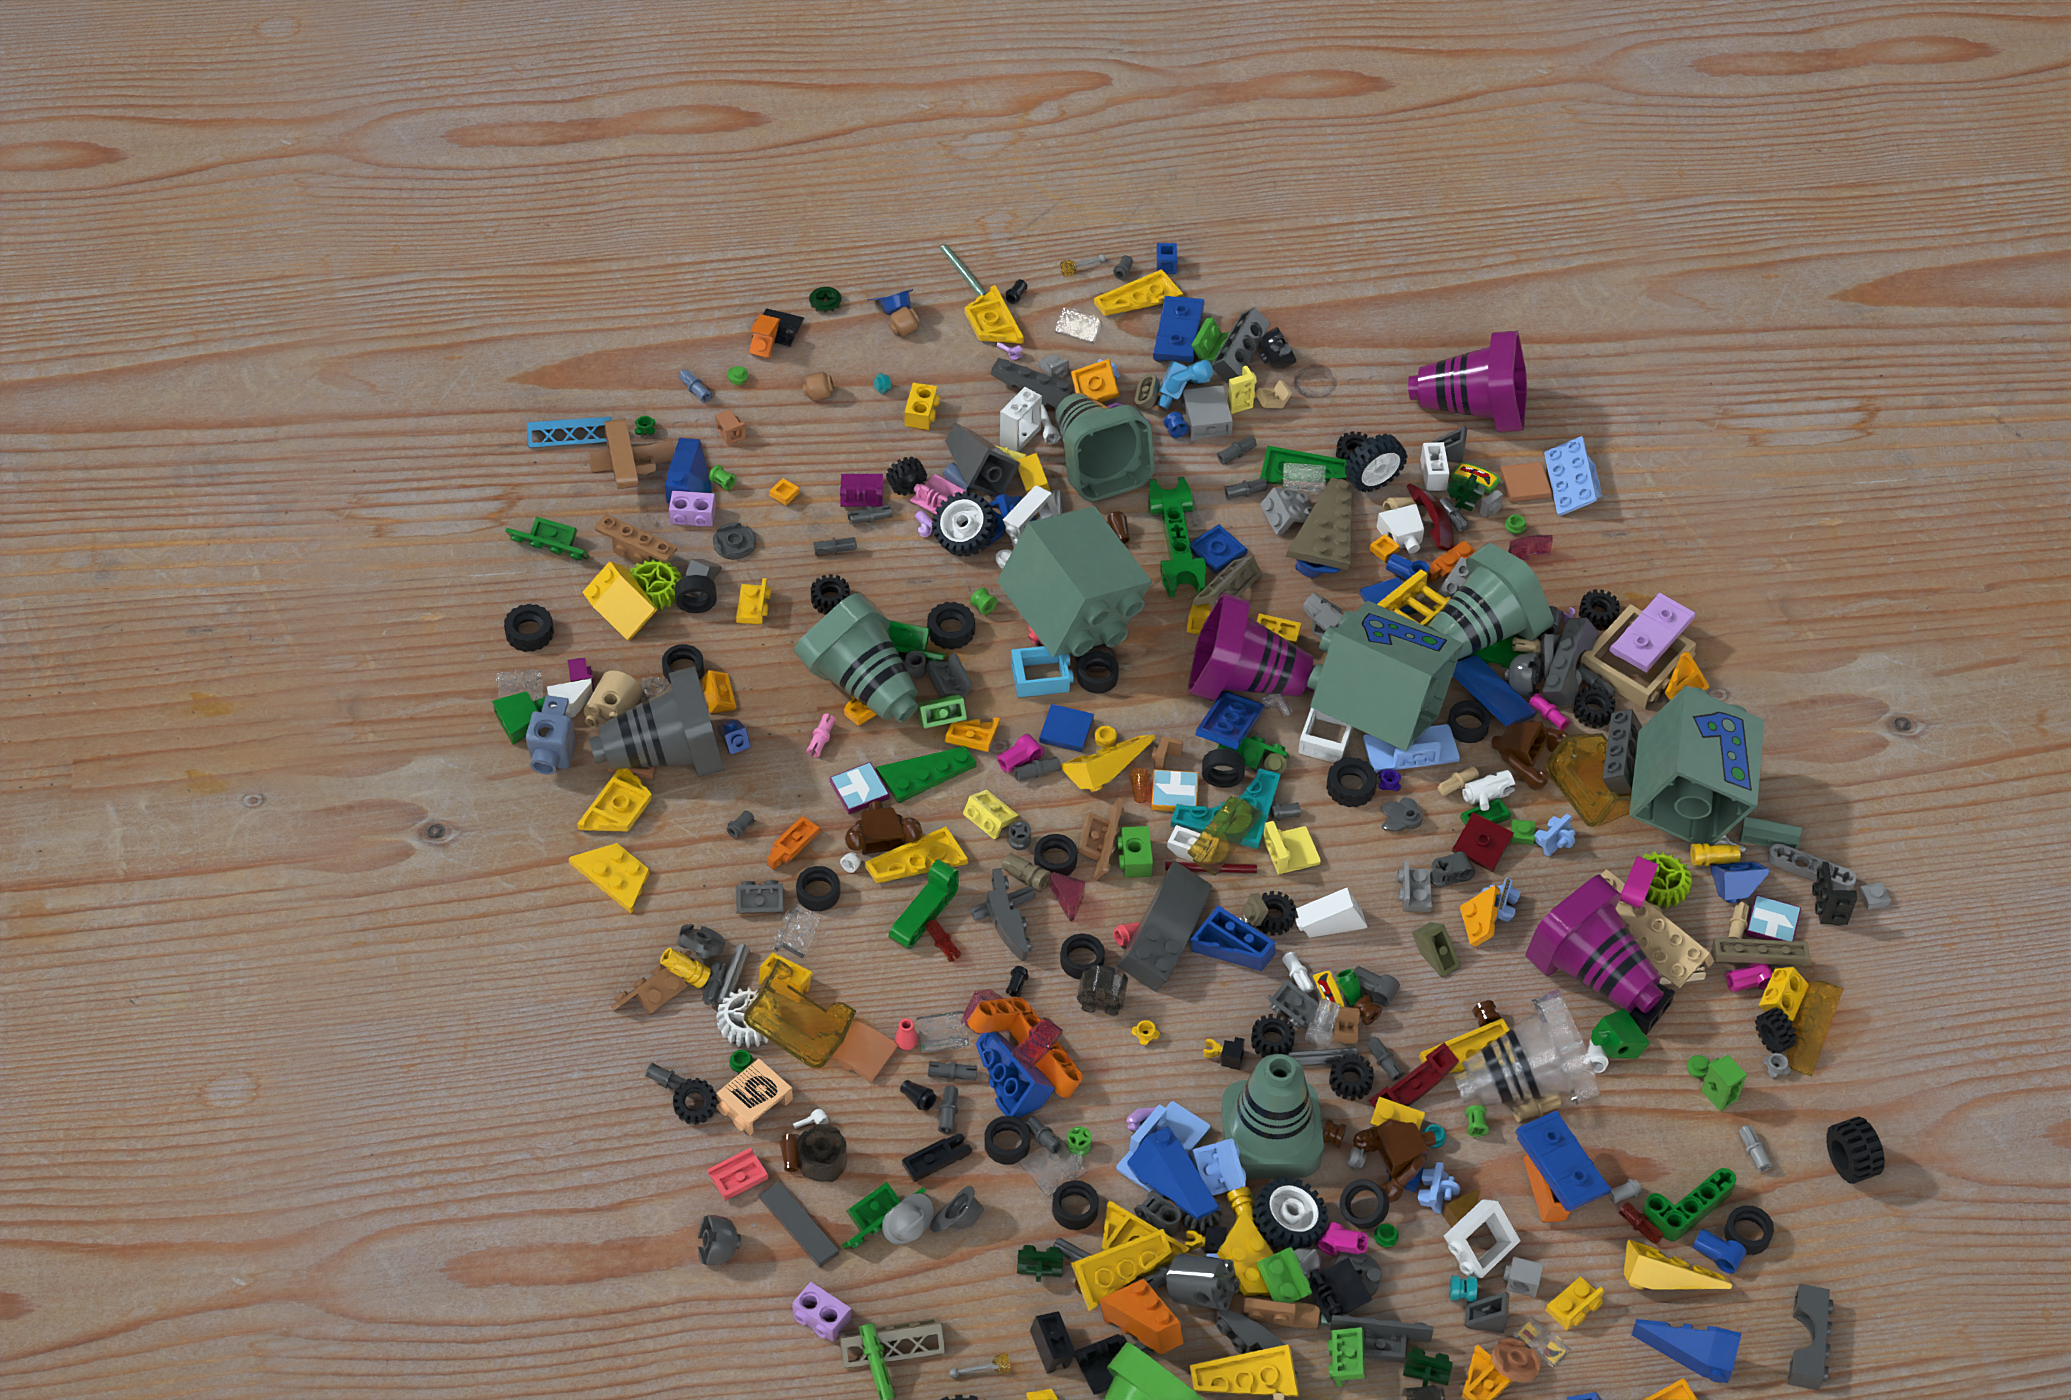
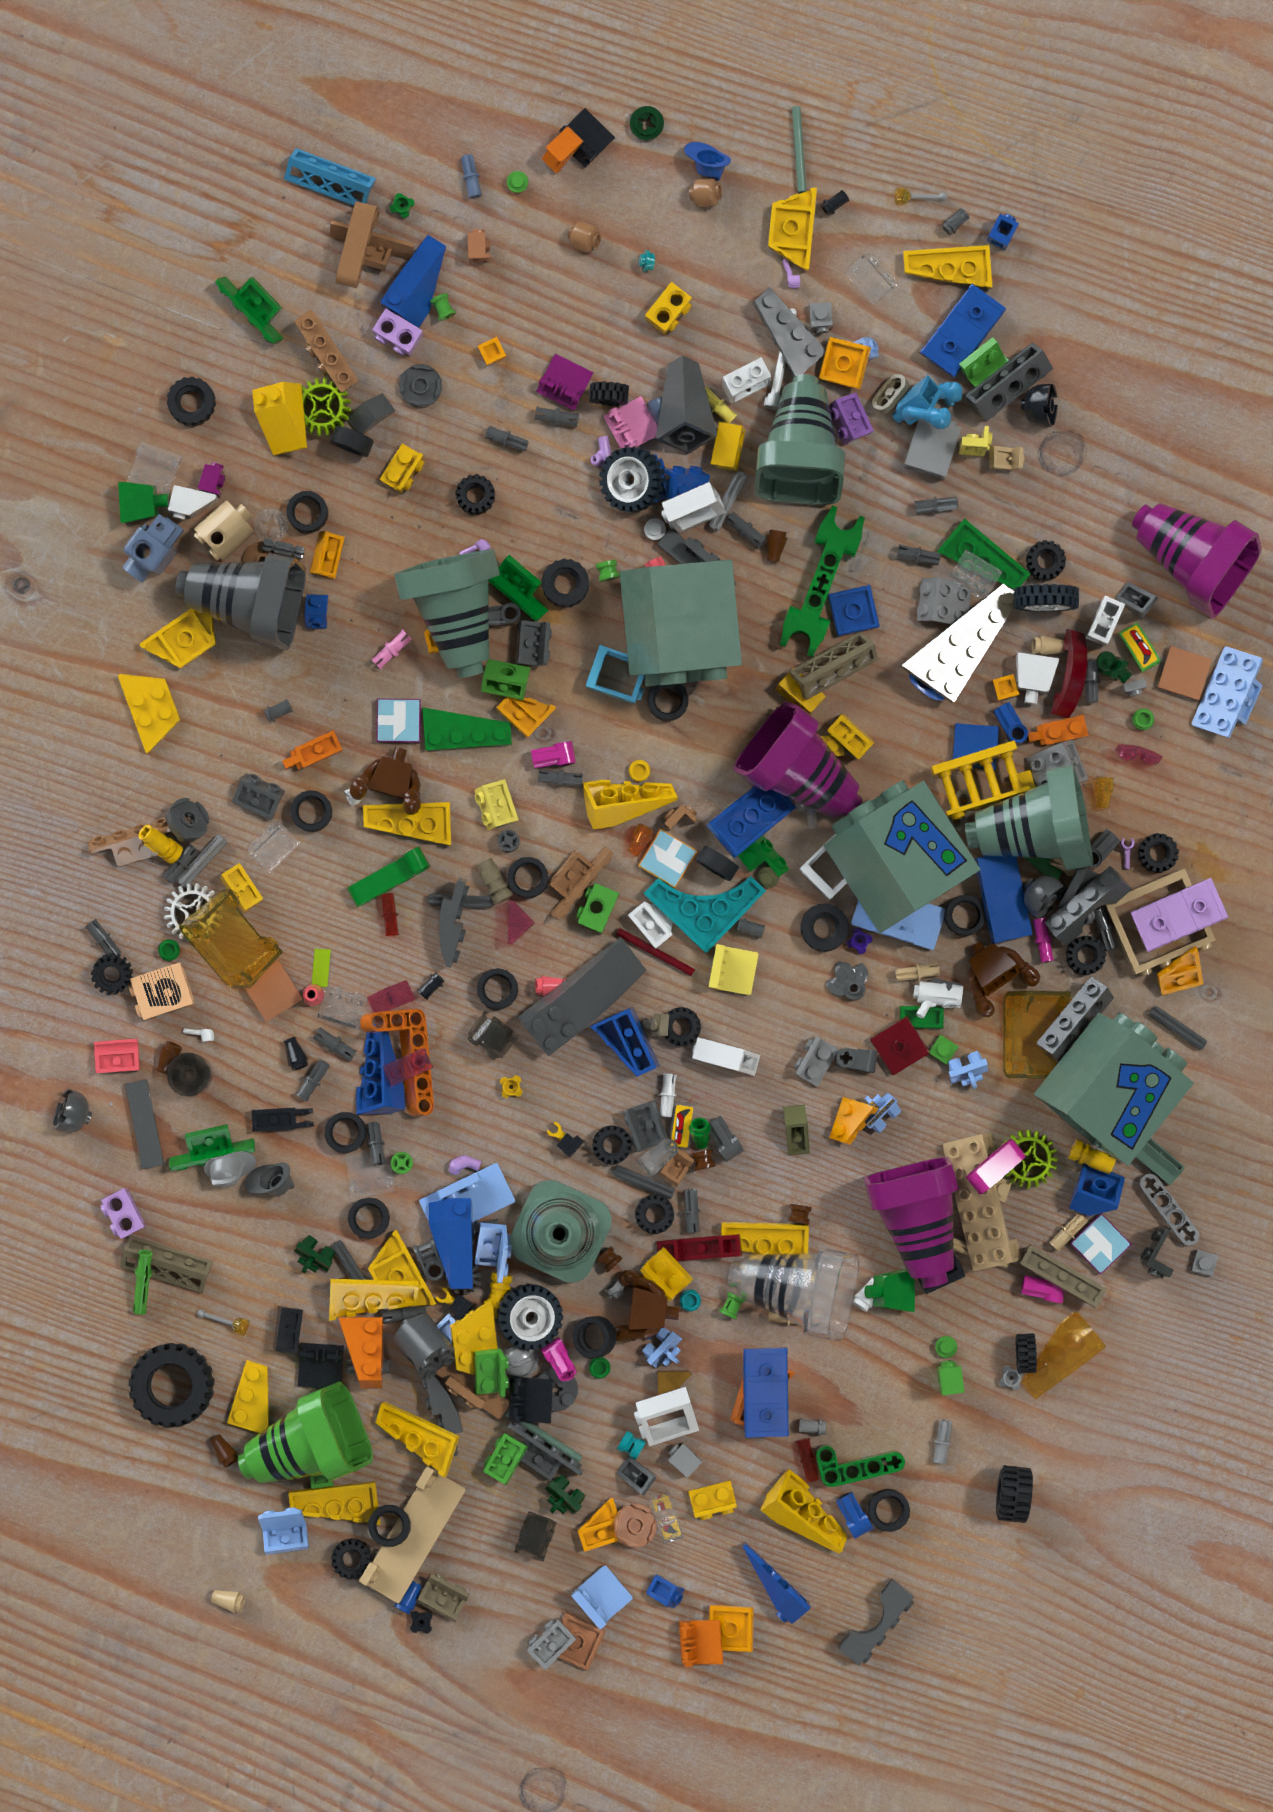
camera: 30 degrees right, 35 degrees up
(898, 1011) = (321, 967): none -> lime sticker
(1066, 728) = (610, 744): blue tile -> none
(1175, 424) = (895, 448): blue wheel -> none
(1224, 834) = (686, 932): clear yellow windscreen -> none
(1321, 613) = (905, 746): light grey plate -> none
(1784, 991) = (1055, 1323): yellow brick -> none

